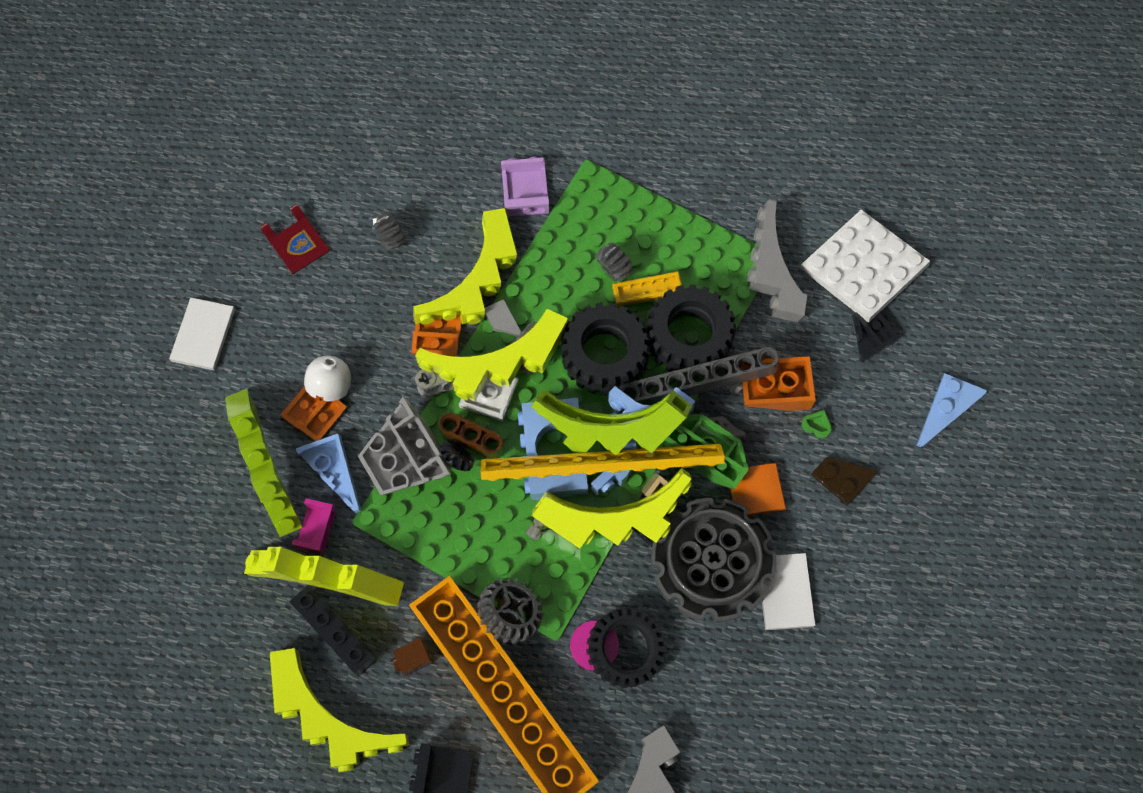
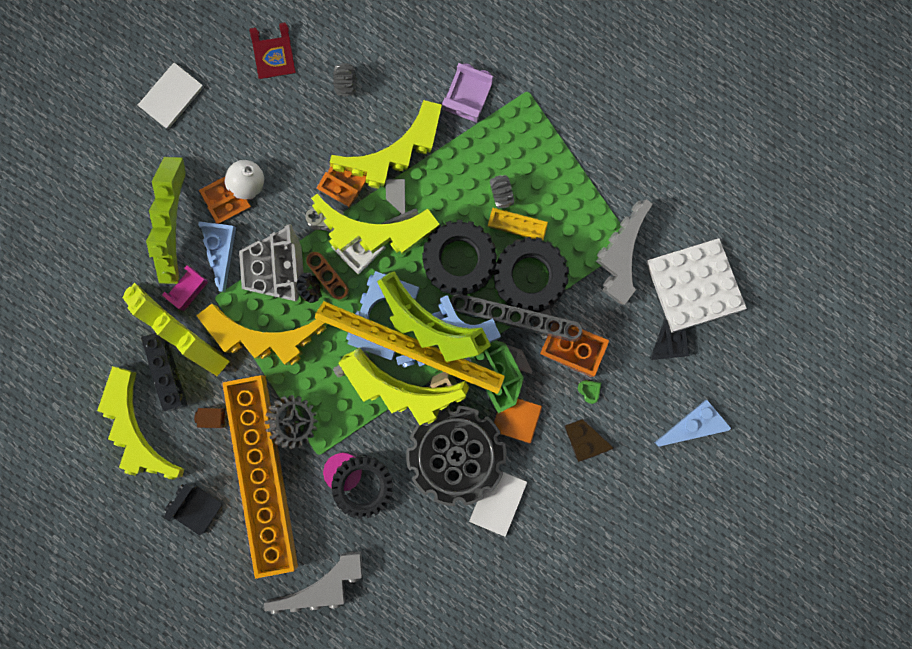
camera: 25 degrees right, 15 degrees up
(429, 544) = (231, 336): none -> yellow arch

